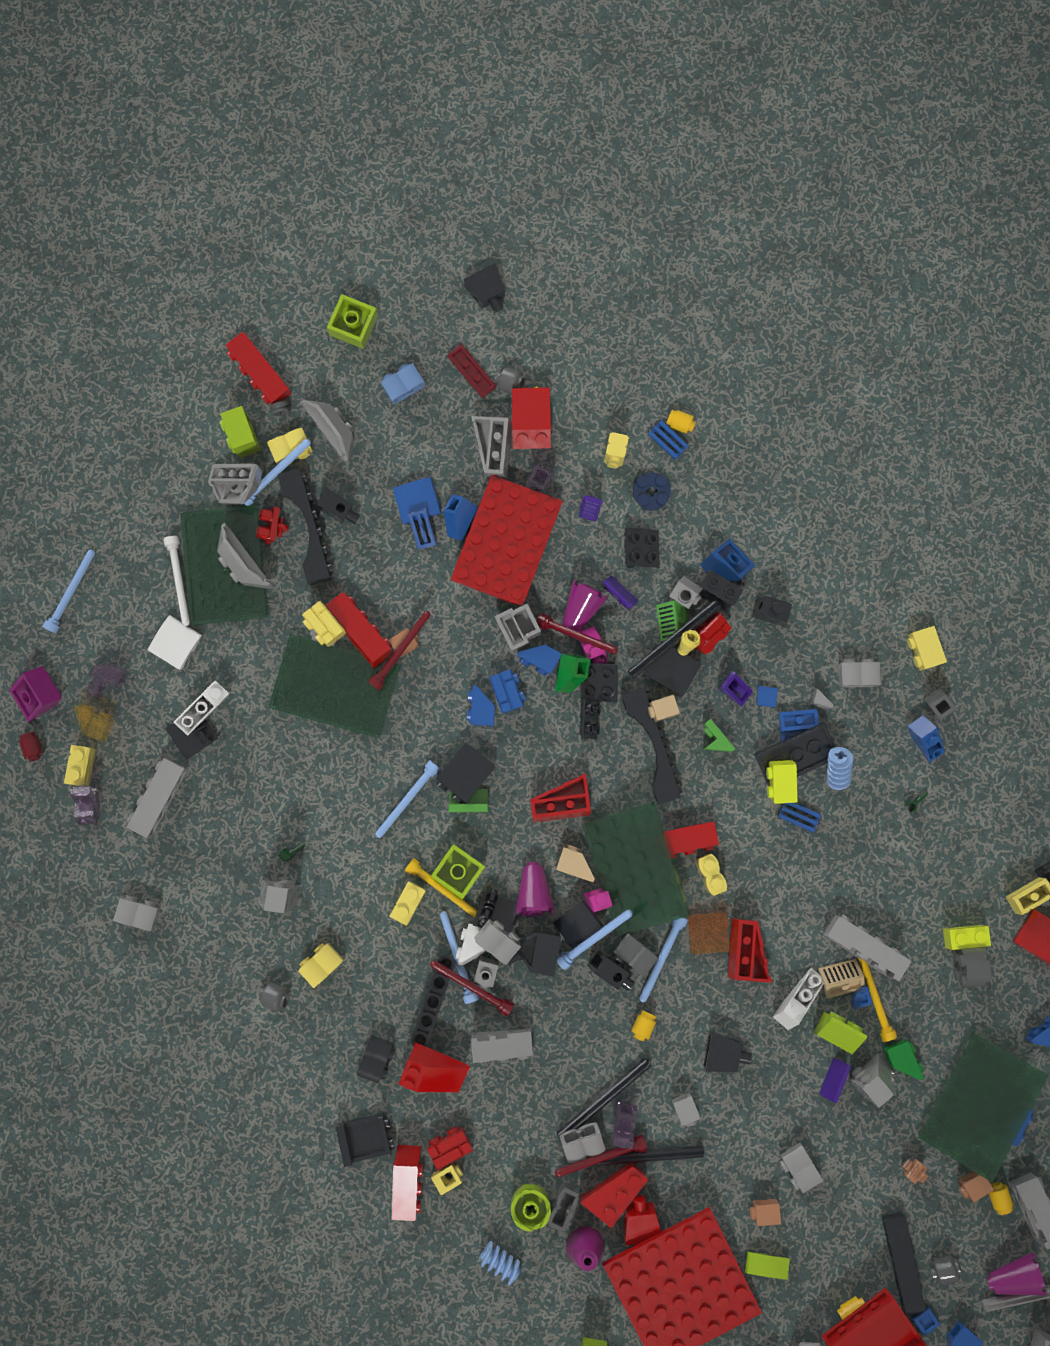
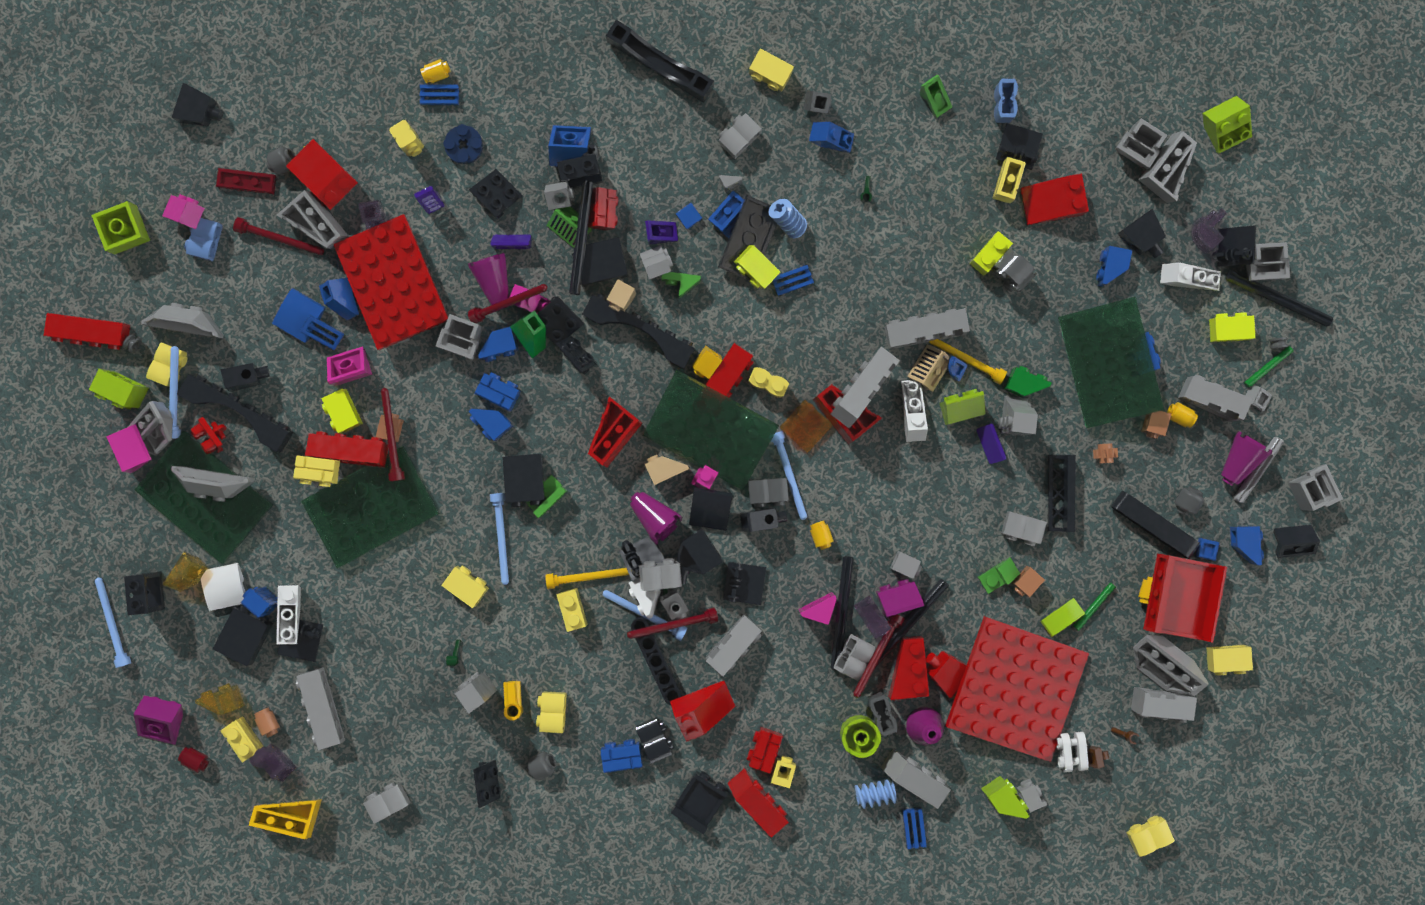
camera: 35 degrees left, 5 degrees up
(55, 855) = (287, 818): none -> yellow wedge
(104, 674) = (195, 658): clear purple brick -> none
(108, 770) = (266, 722): none -> nougat brick
(117, 596) = (142, 601): none -> black window
(154, 691) = (243, 635): none -> black brick
(158, 607) = (185, 573): none -> clear yellow slope
(172, 544) = (151, 518): white piece -> none
(190, 679) = (259, 601): none -> blue brick
(206, 481) = (129, 449): none -> dark pink slope
(223, 971) = (486, 783): none -> black hinge
(301, 926) = (512, 697): none -> yellow piece
(339, 1047) = (621, 756): none -> blue brick
(347, 810) = (465, 586): none -> light yellow brick
(381, 598) = (341, 411): none -> neon yellow brick
(408, 351) = (183, 211): none -> dark pink brick
(416, 570) = (347, 366): none -> dark pink slope
(438, 400) = (242, 226): none -> dark red piece
(458, 871) = (585, 553): lime brick -> none
(494, 1332) = (916, 844): none -> blue tile
(541, 1281) = (916, 779): none -> light grey wedge
(552, 1006) = (744, 583): none -> black hinge
(566, 959) = (722, 541): light blue piece -> none
(591, 1081) = (820, 609): none -> dark pink slope
(658, 1130) = (899, 597): none -> magenta slope
(679, 816) = (706, 362): none -> yellow brick
(689, 641) = (592, 228): light yellow cone -> none
(712, 708) = (656, 262): none -> light grey brick
(724, 1054) = (896, 500): black torso -> none
(746, 1185) = (999, 575): none -> bright green slope
(772, 610) = (634, 148): black torso -> none
(780, 947) = (863, 387): none -> light grey wedge
(800, 1280) = (1094, 606): none -> green bar
(843, 541) = (640, 50): none -> black arch
(857, 1176) = (1068, 489): none -> black fence
(1032, 782) = (936, 96): none -> bright green slope

